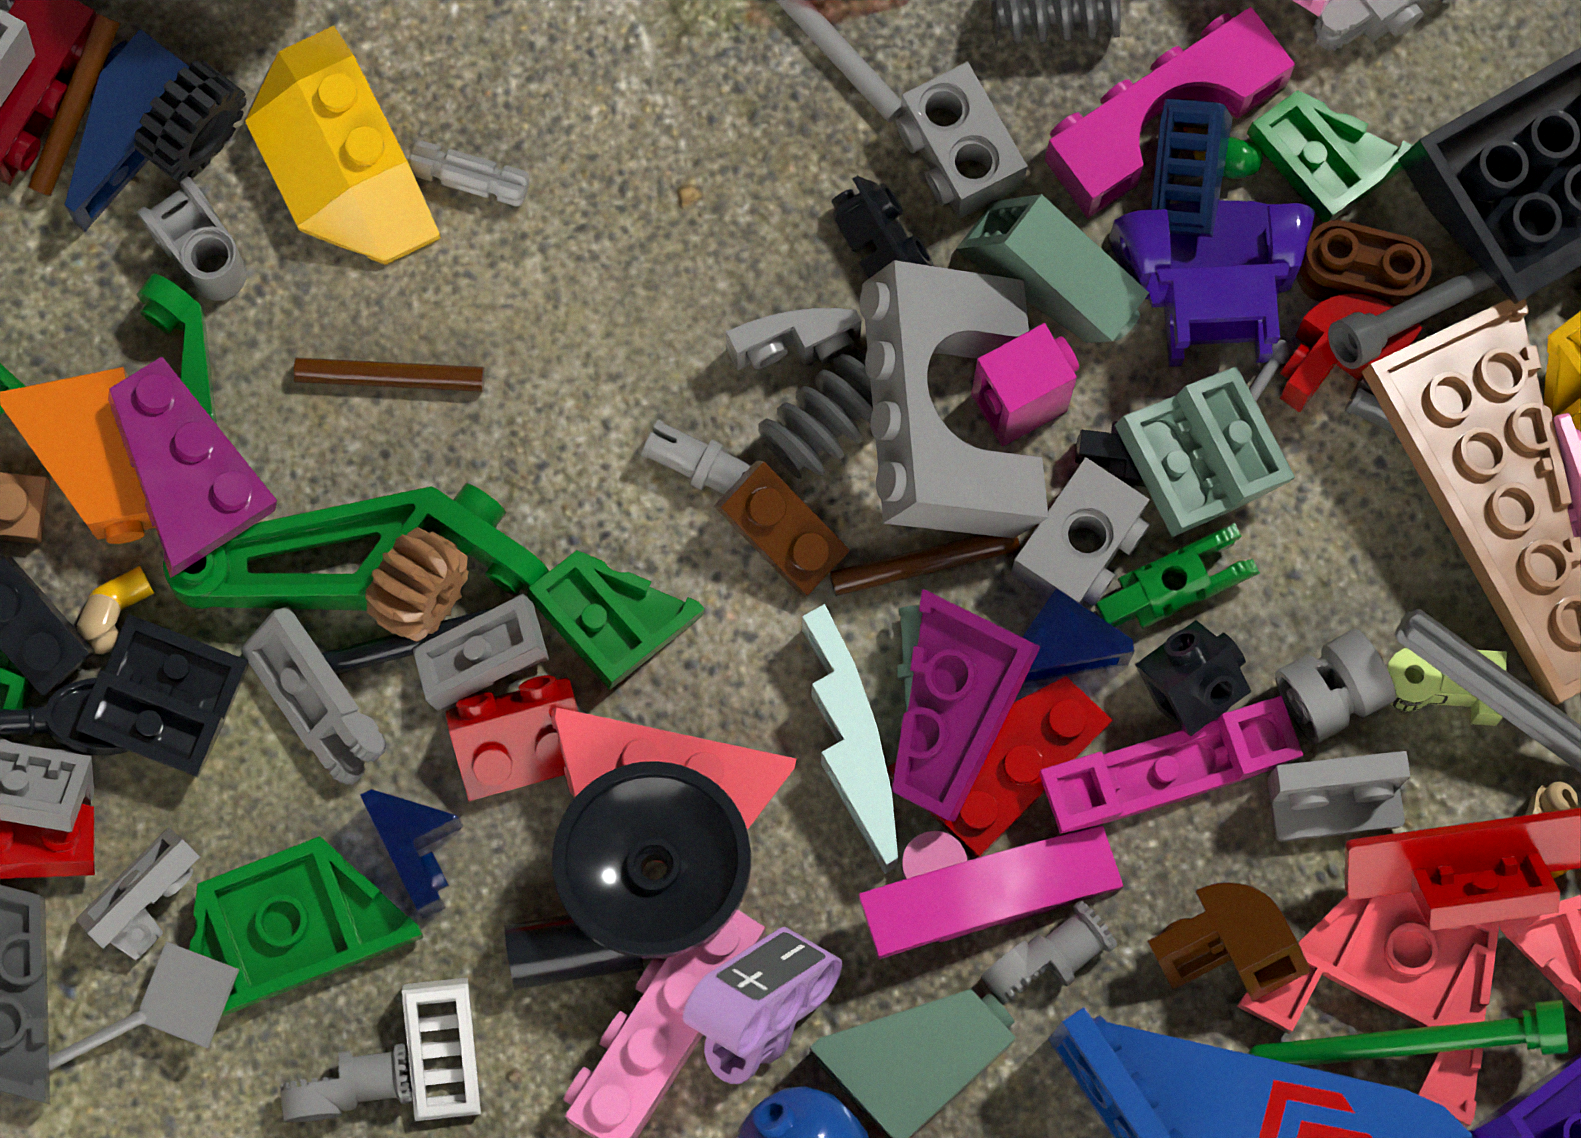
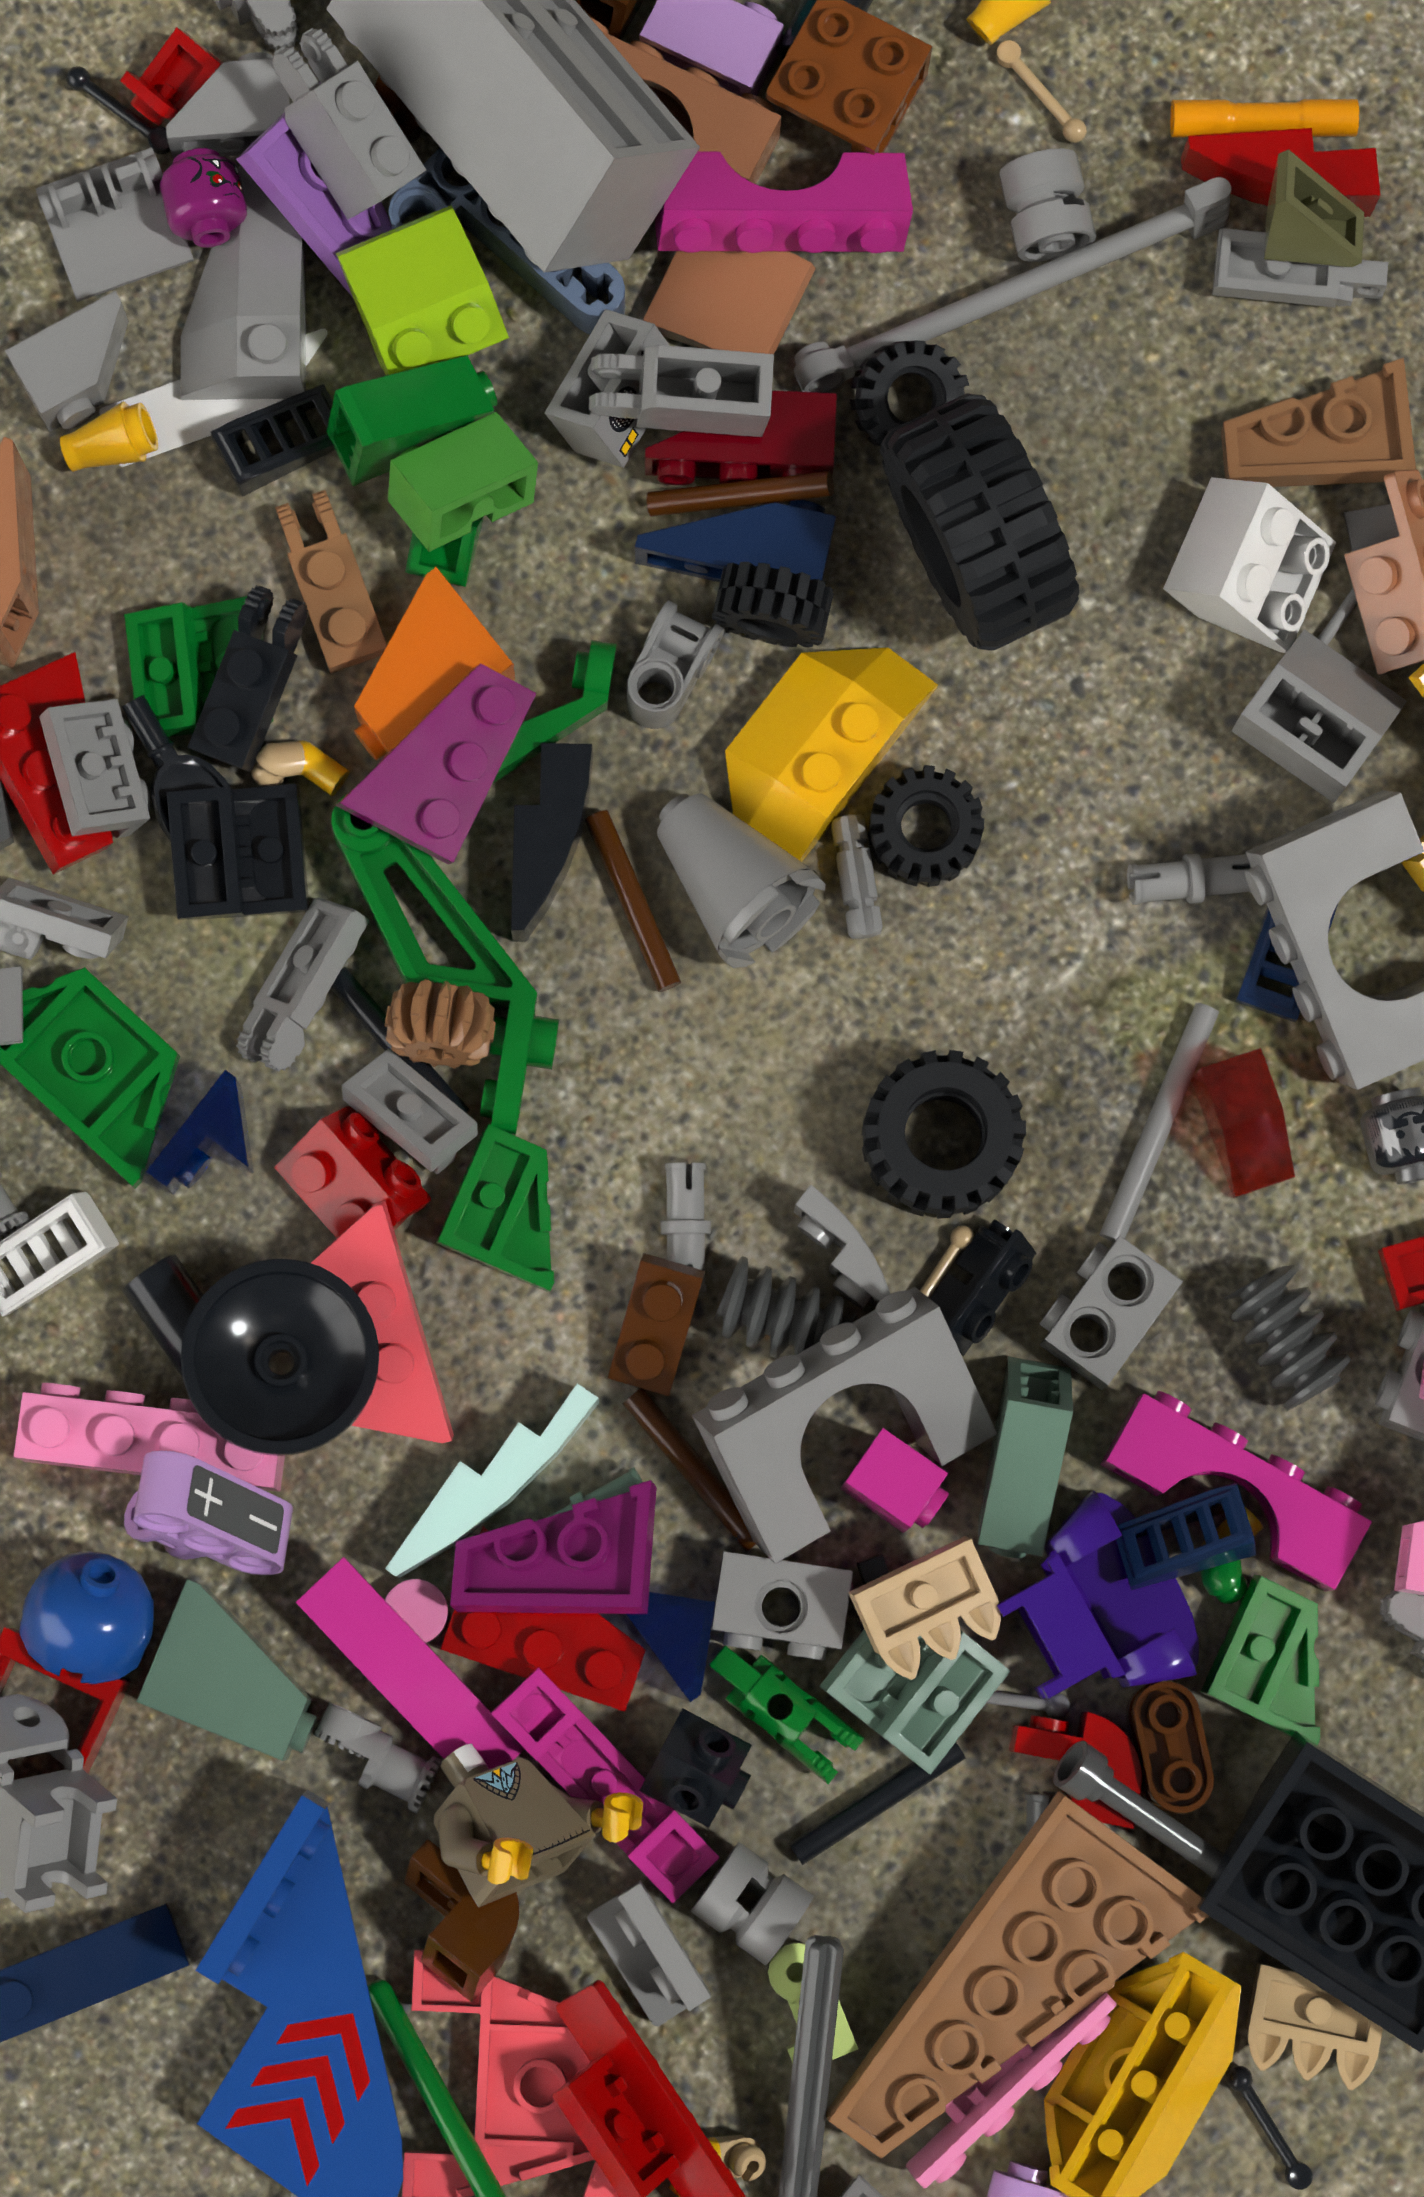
camera: 60 degrees right, 5 degrees up
(289, 414) = (548, 833): none -> black slope
(415, 269) = (736, 878): none -> light grey cone
(451, 57) = (926, 788): none -> black tyre
(725, 156) = (956, 1081): none -> black tyre
(834, 239) = (960, 1239): none -> tan hinge
(1145, 400) = (926, 1602): none -> tan plate
(1175, 857) = (516, 1828): none -> dark tan torso
(1295, 556) = (869, 1806): none -> black bar

